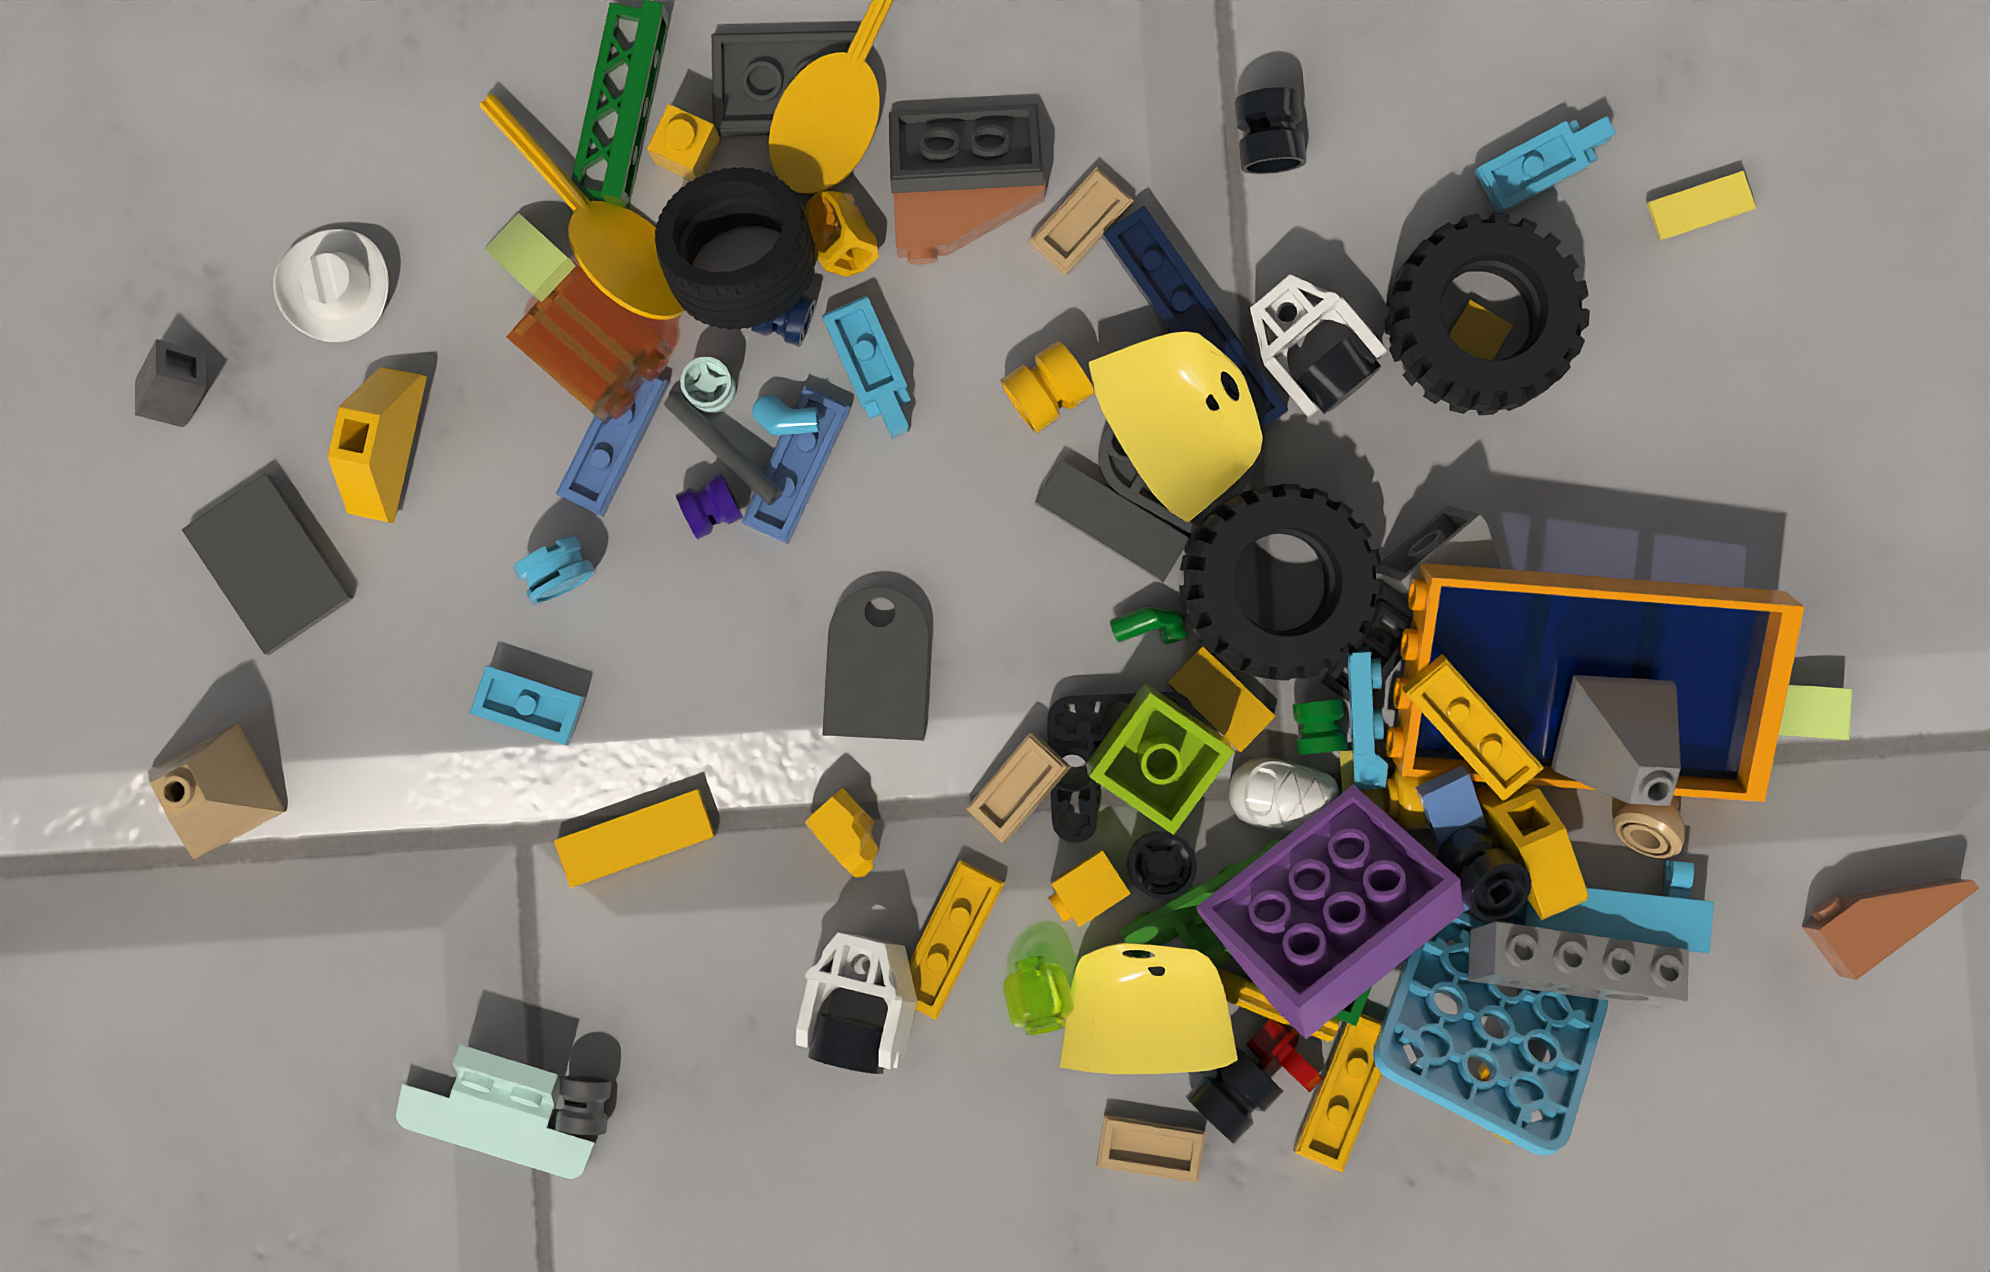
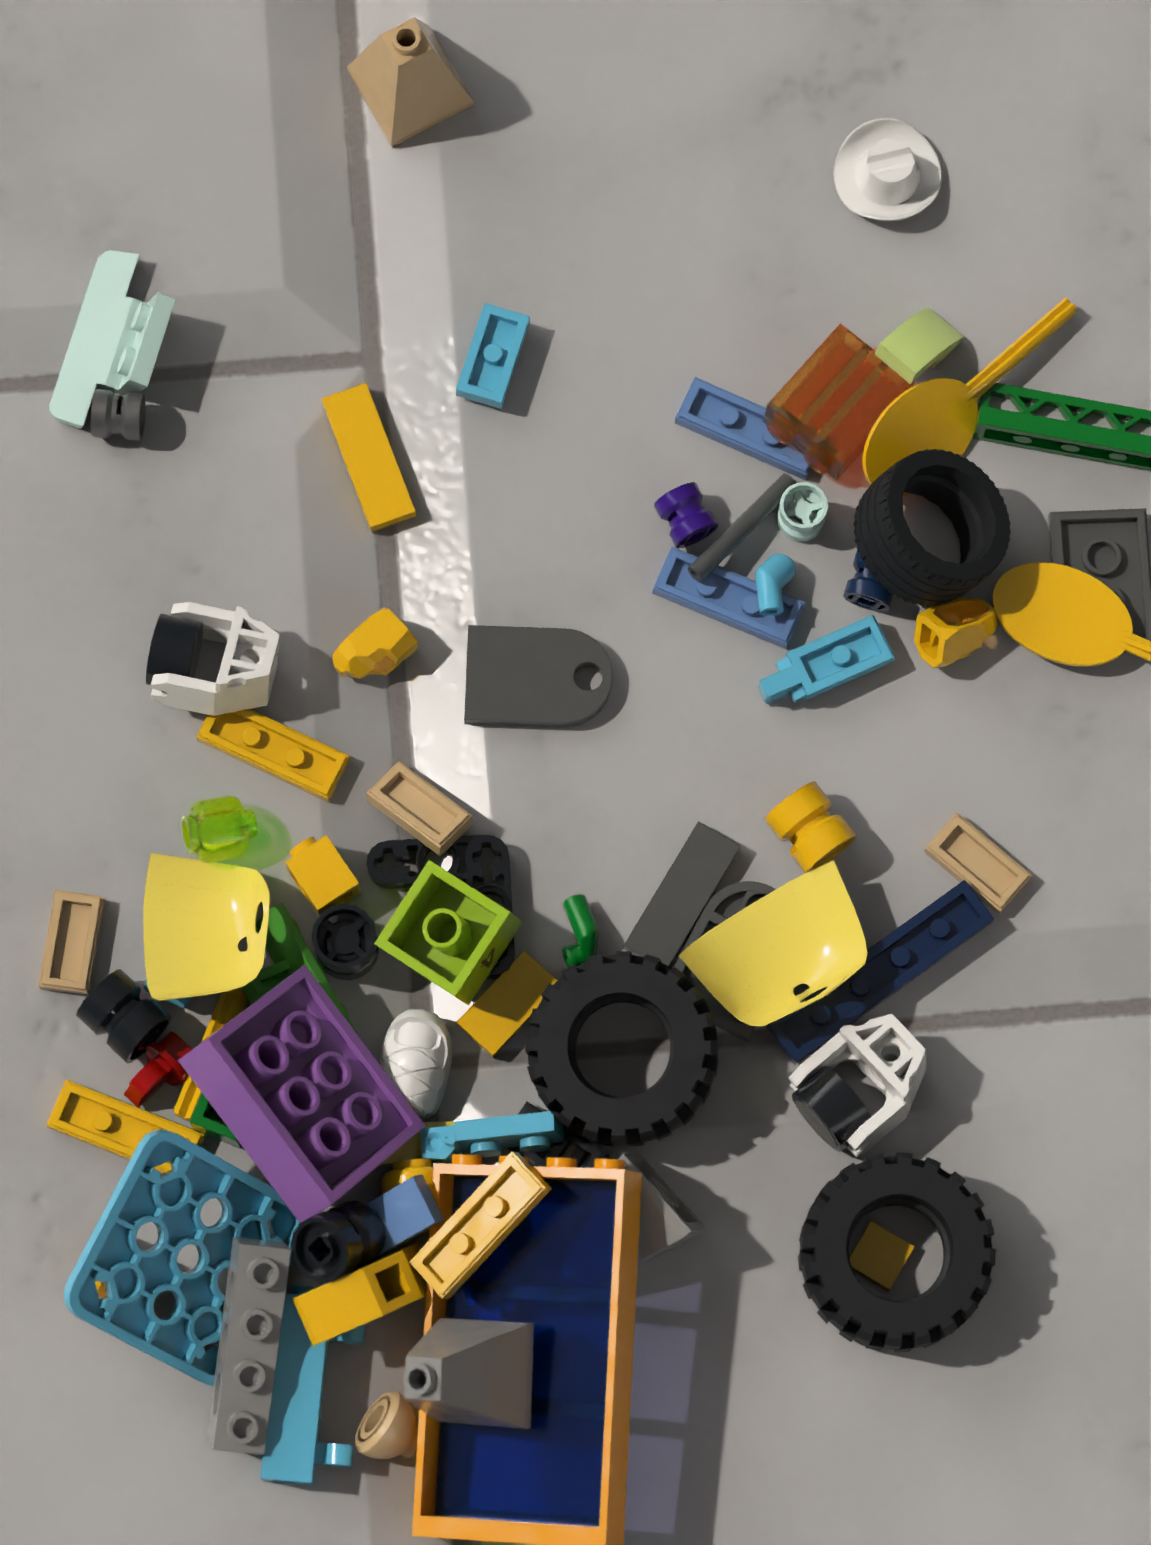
camera: 85 degrees right, 10 degrees down
(170, 383) = (788, 32): flat silver panel -> none
(267, 564) = (622, 122): dark grey tile -> none
(375, 442) = (739, 211): yellow slope -> none
(554, 570) = (620, 374): medium azure wheel -> none
(683, 143) = (1034, 483): yellow brick -> none
(947, 220) = (974, 734): nougat slope -> none
(965, 148) = (1042, 745): dark grey tile -> none
(1270, 125) = (1074, 1041): black wheel -> none
(1320, 727) = (482, 1096): green wheel -> none
(1542, 162) = (1056, 1317): medium azure hinge -> none
(1701, 206) = (1020, 1482): light yellow piece -> none

